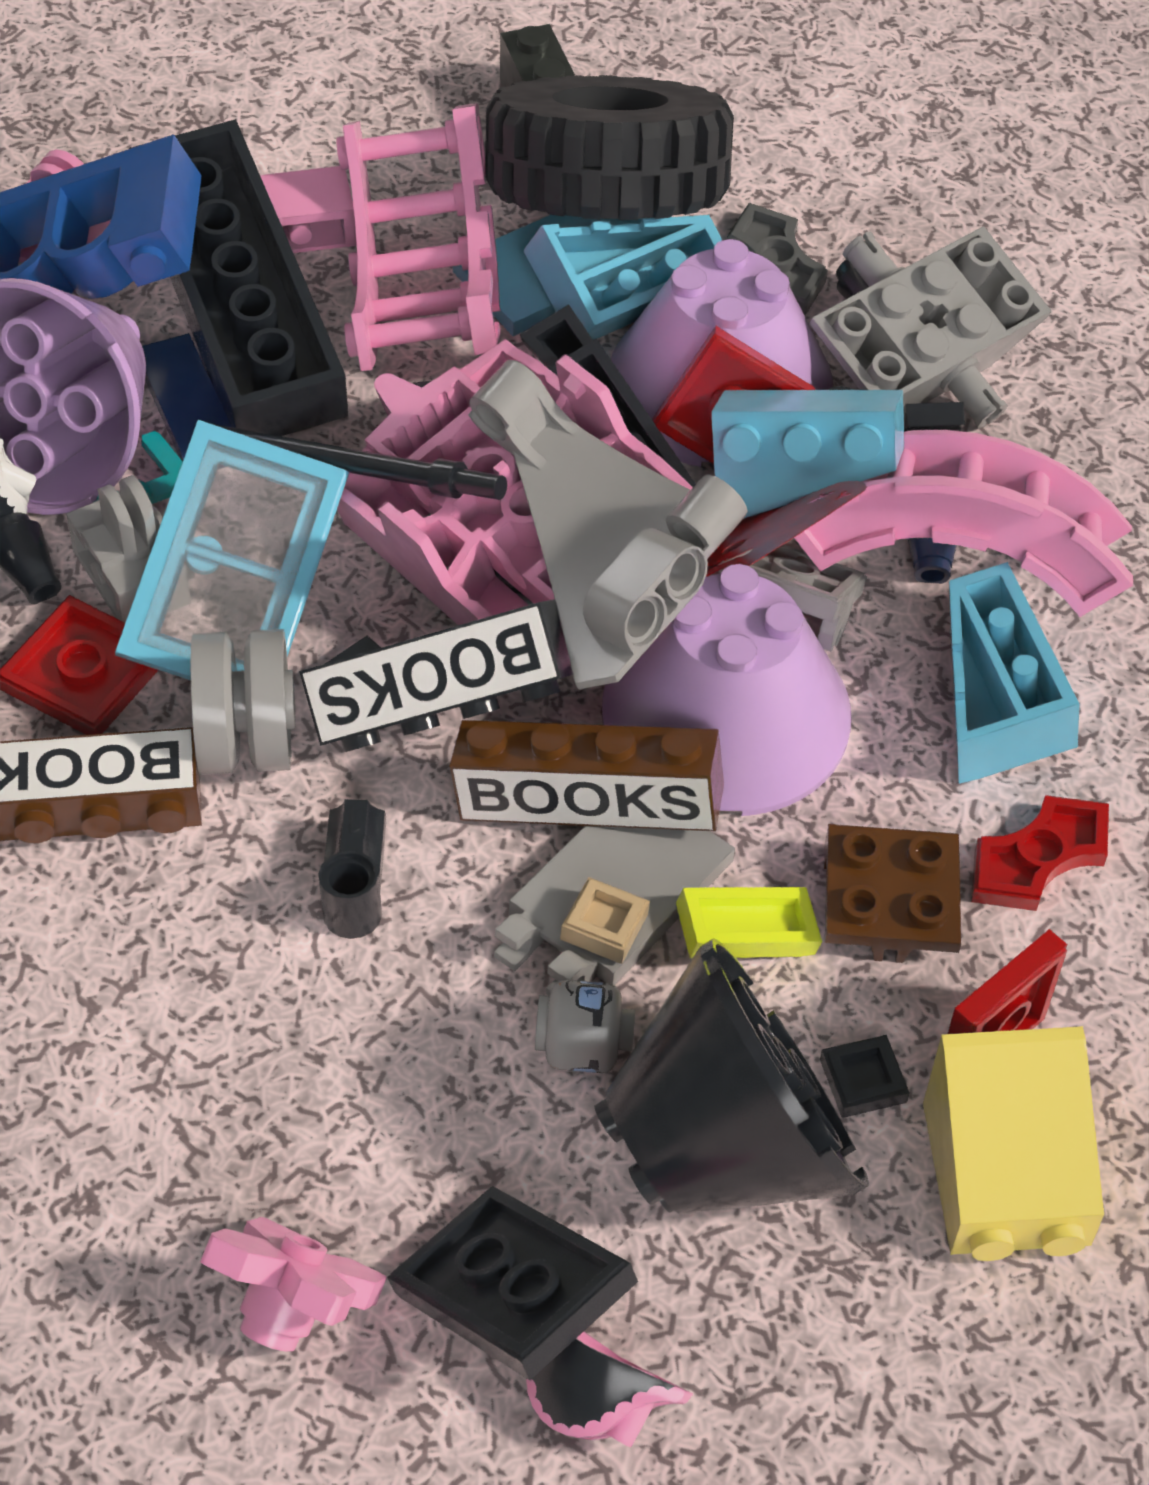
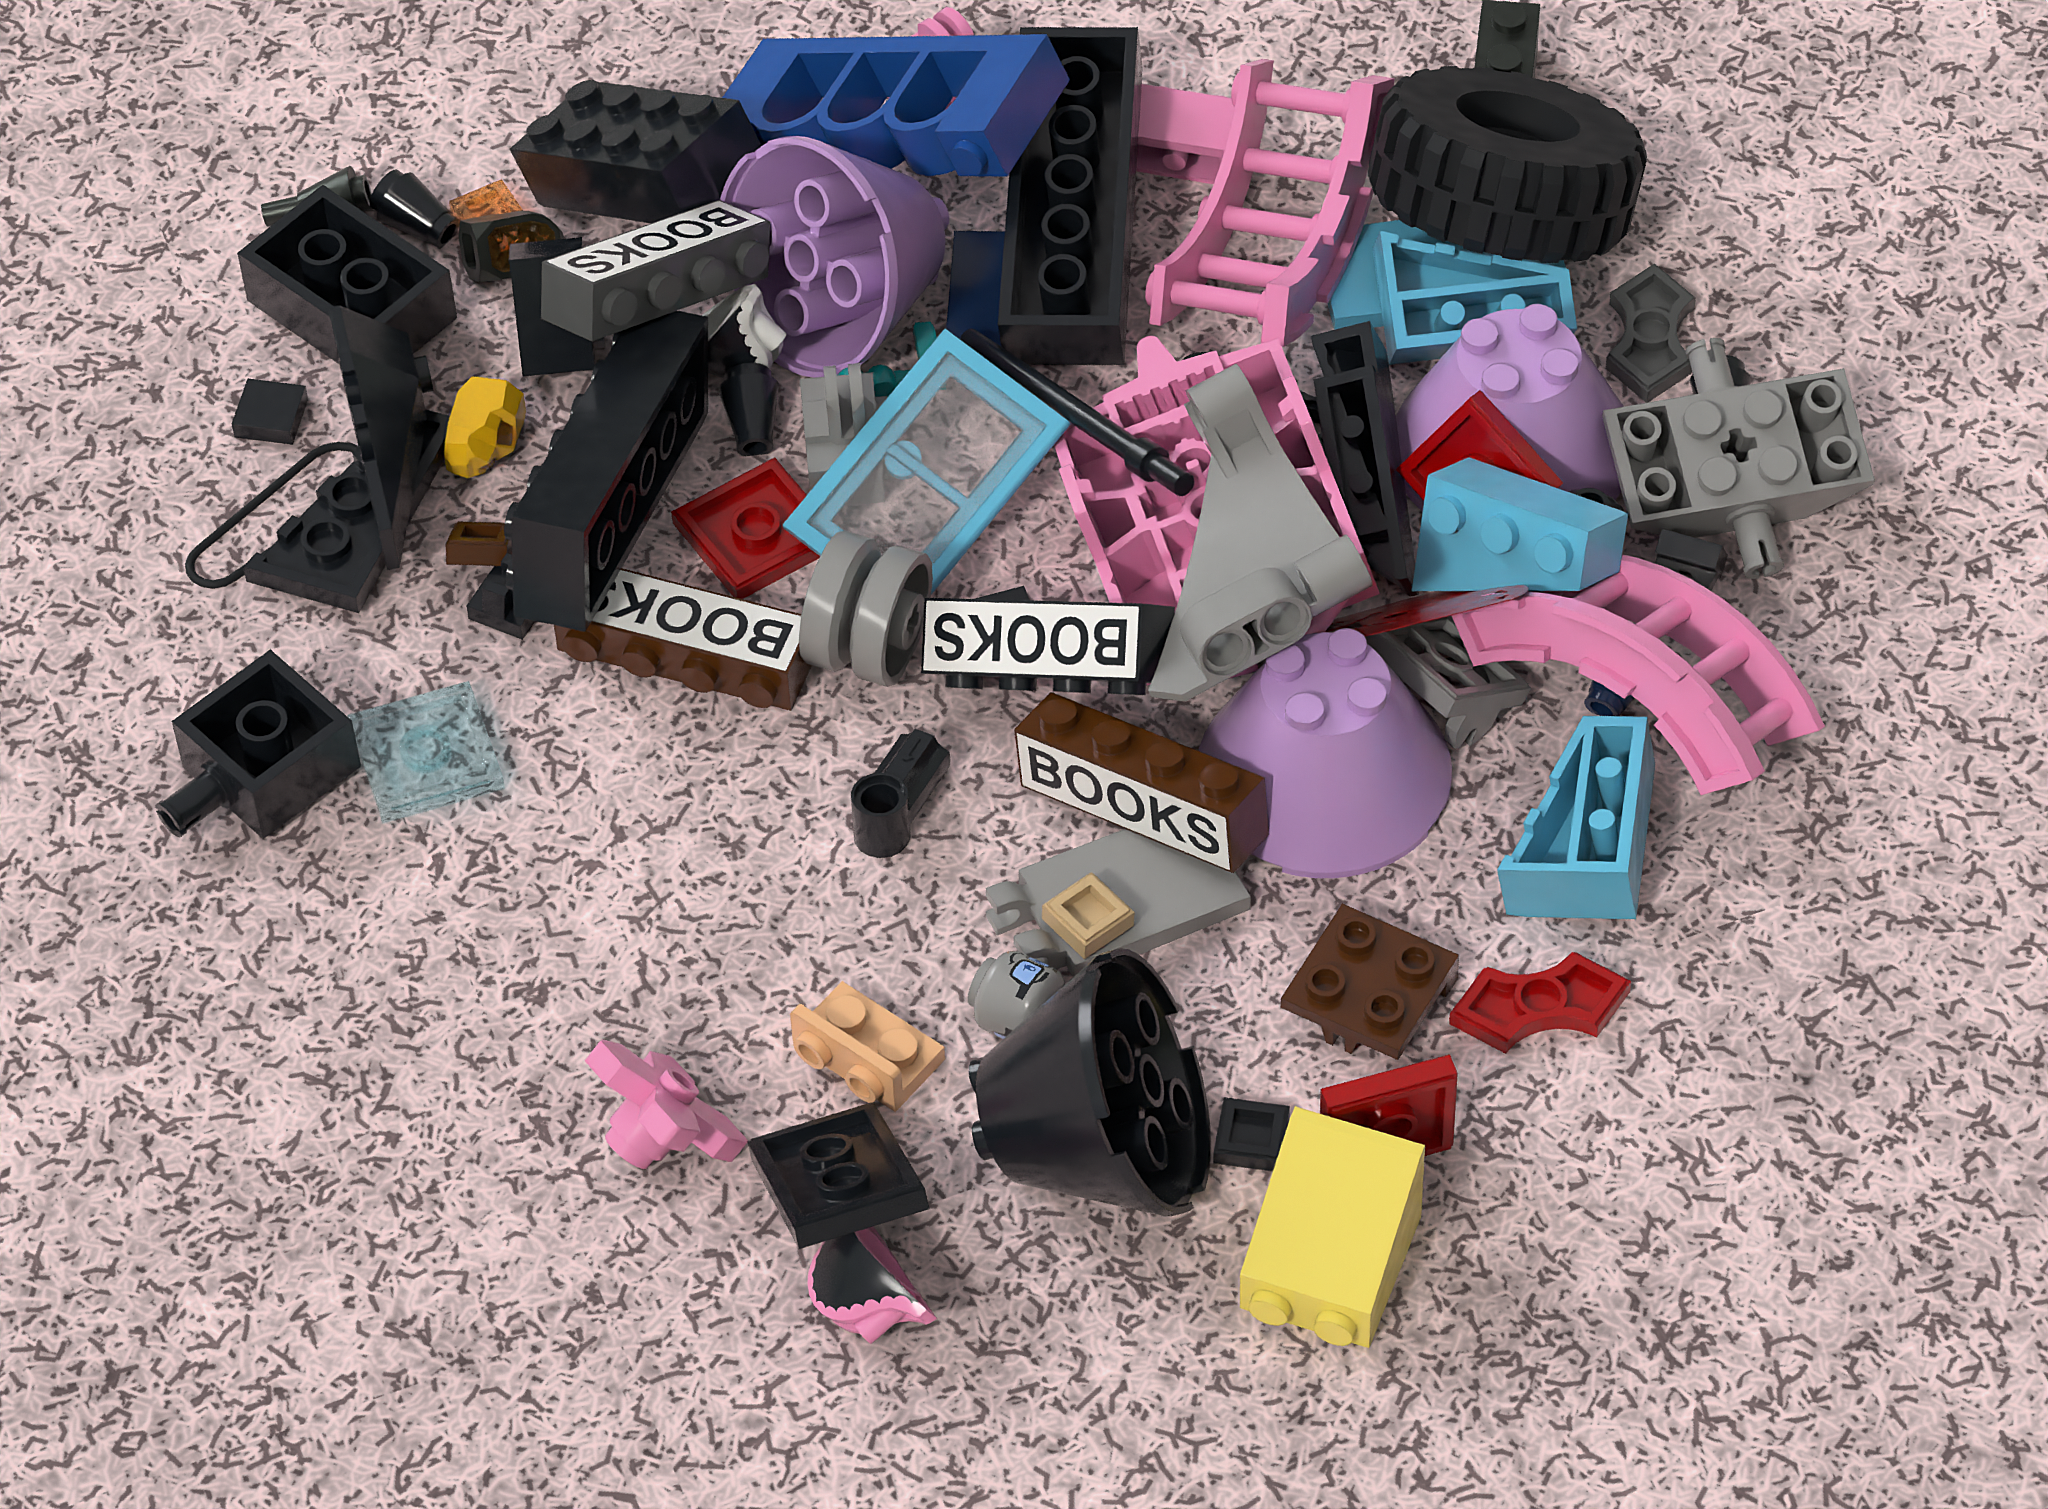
camera: 30 degrees right, 0 degrees up
(452, 1131) = (865, 1046): none -> light nougat bracket
(750, 920) = (1223, 965): neon yellow tile -> none

